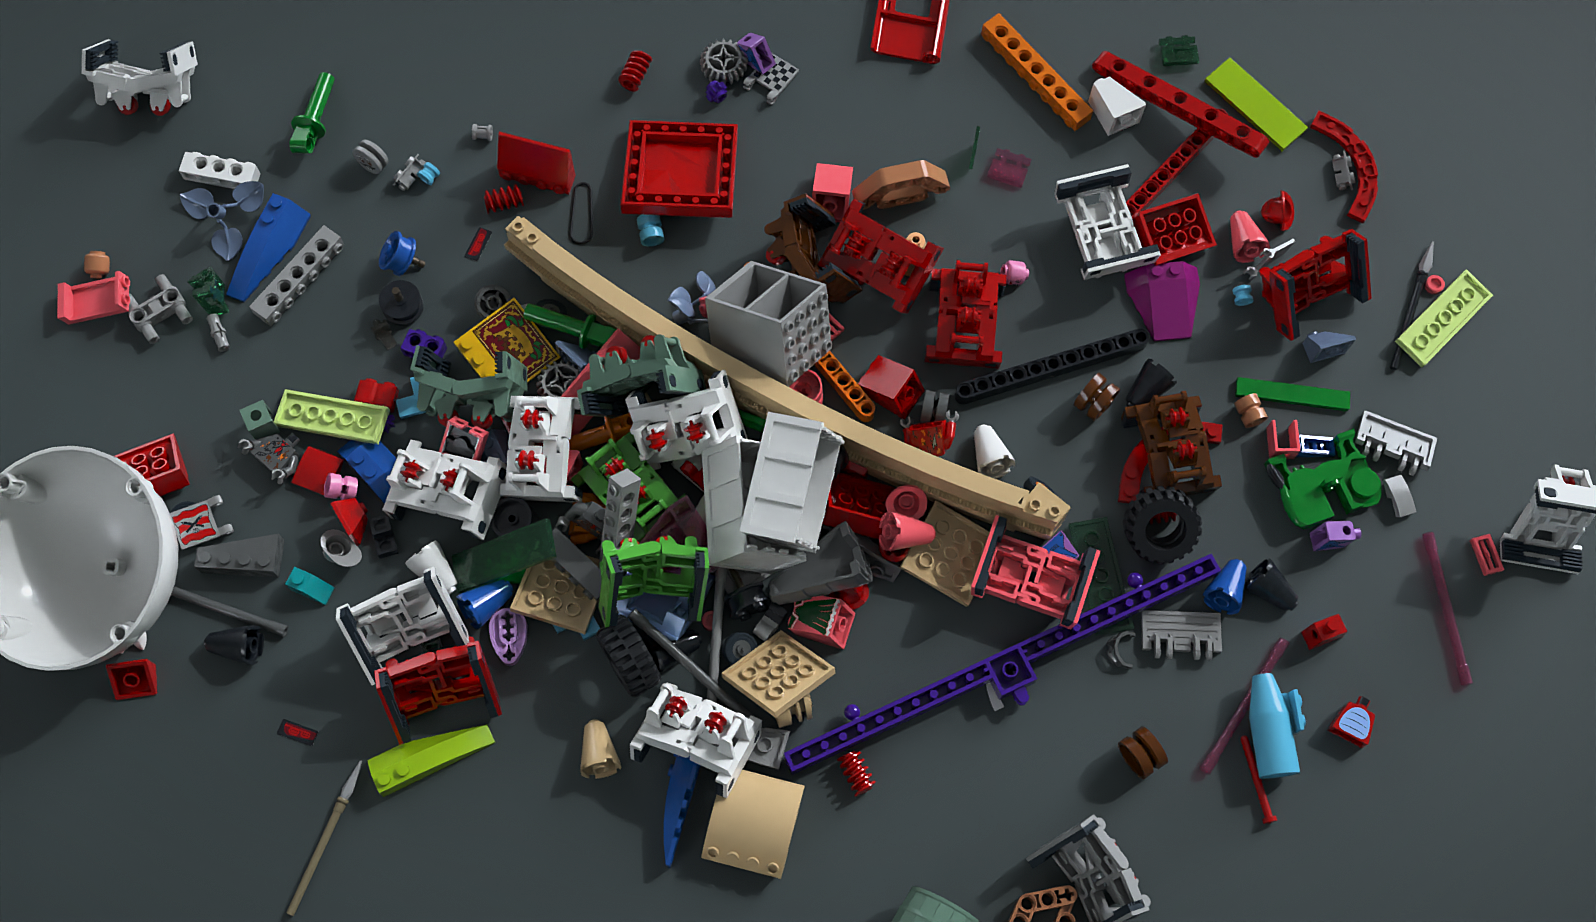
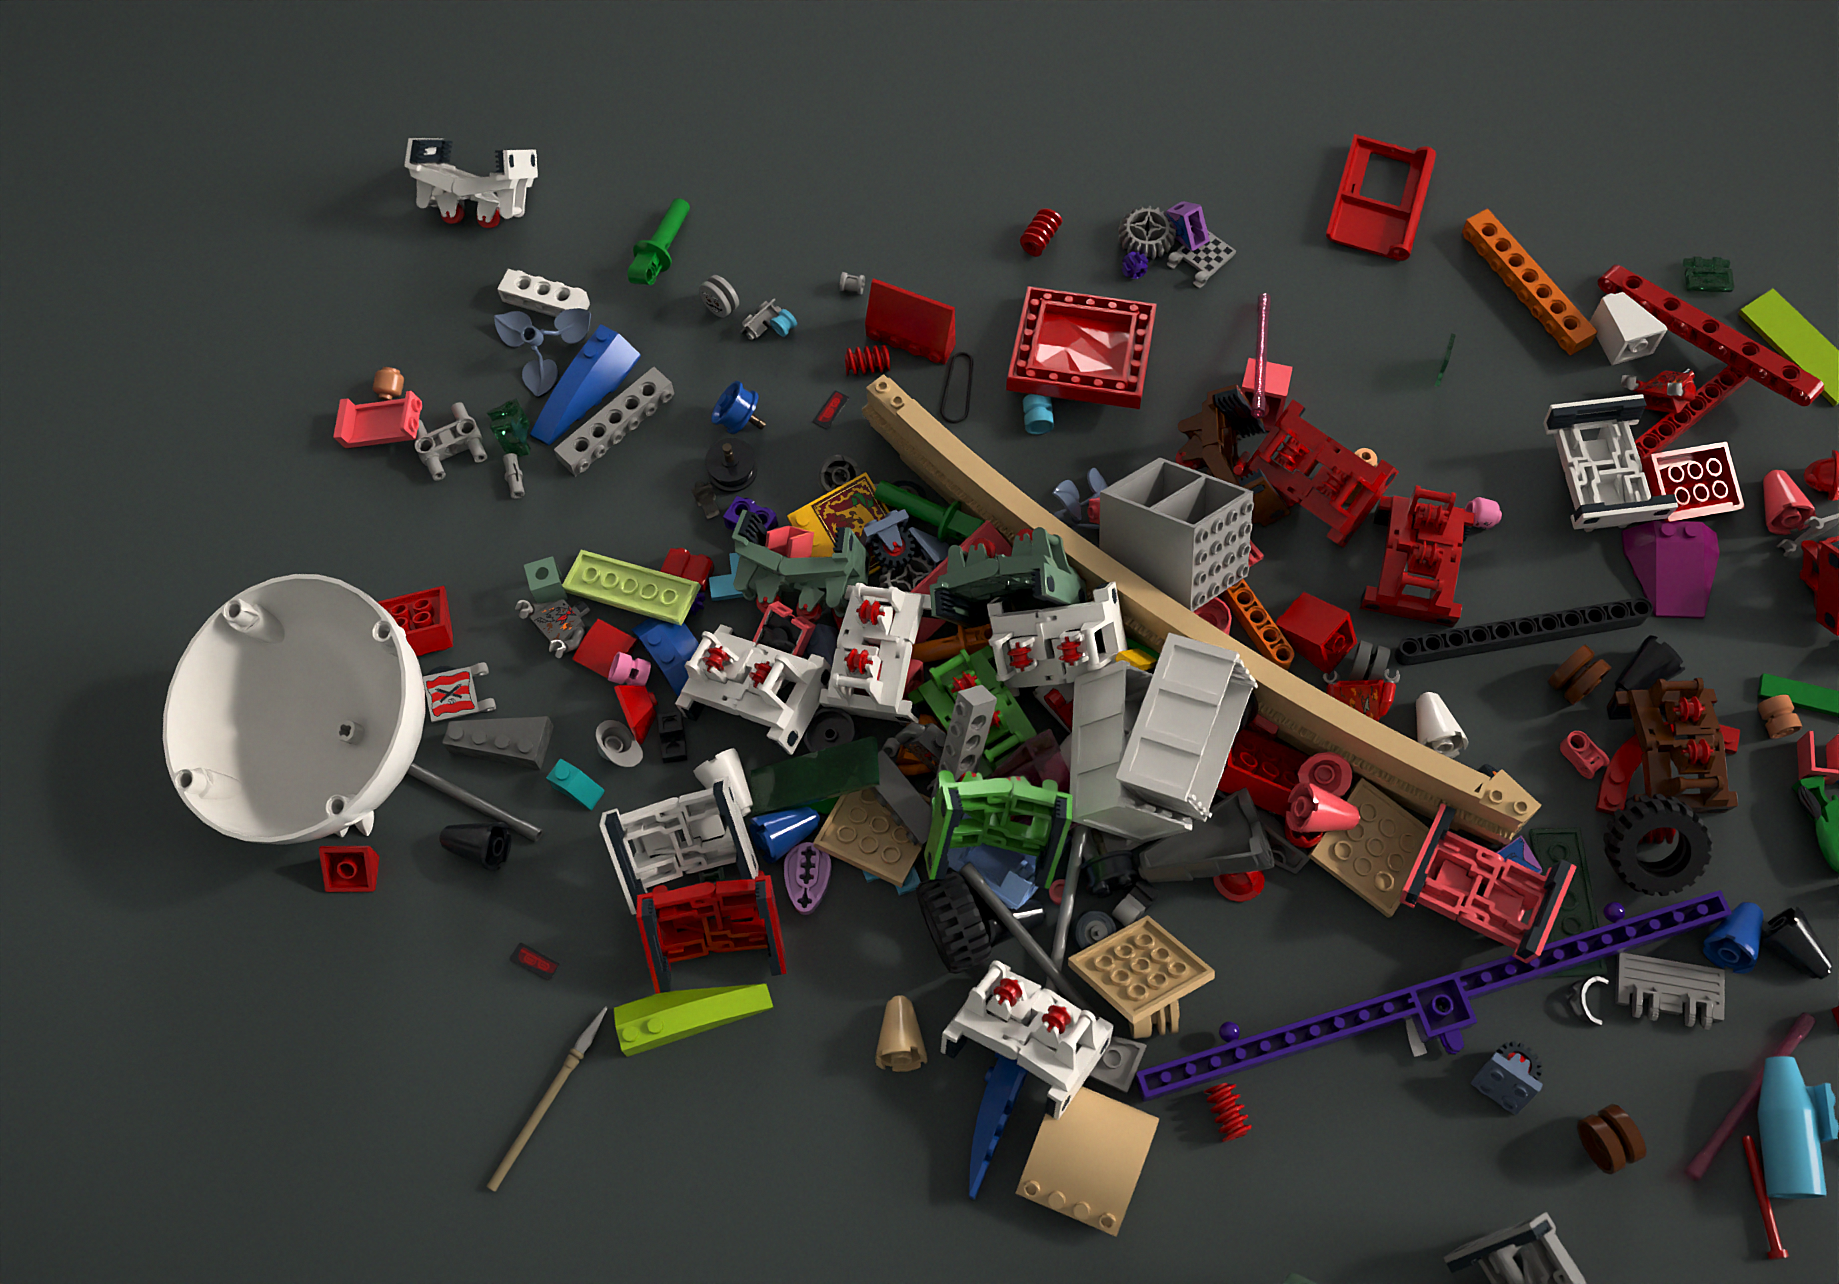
camera: 15 degrees right, 5 degrees down
(454, 364) = (790, 541): none -> coral piece
(540, 353) = (889, 540): none -> plate
(749, 429) = (1137, 658): none -> yellow tile
(818, 255) = (1241, 463): none -> red bar
(822, 620) = (1202, 910): slope -> none
(826, 203) = (1258, 399): none -> clear pink piece
(901, 184) = (1352, 392): nougat piece -> none
(1008, 172) = (1482, 394): clear pink plate -> none
(1066, 716) = (1510, 1077): none -> sand blue plate
(1106, 459) = (1582, 757): none -> coral piece
(1149, 156) = (1666, 391): none -> red torso
(1243, 295) = (1775, 572): medium azure wheel -> none

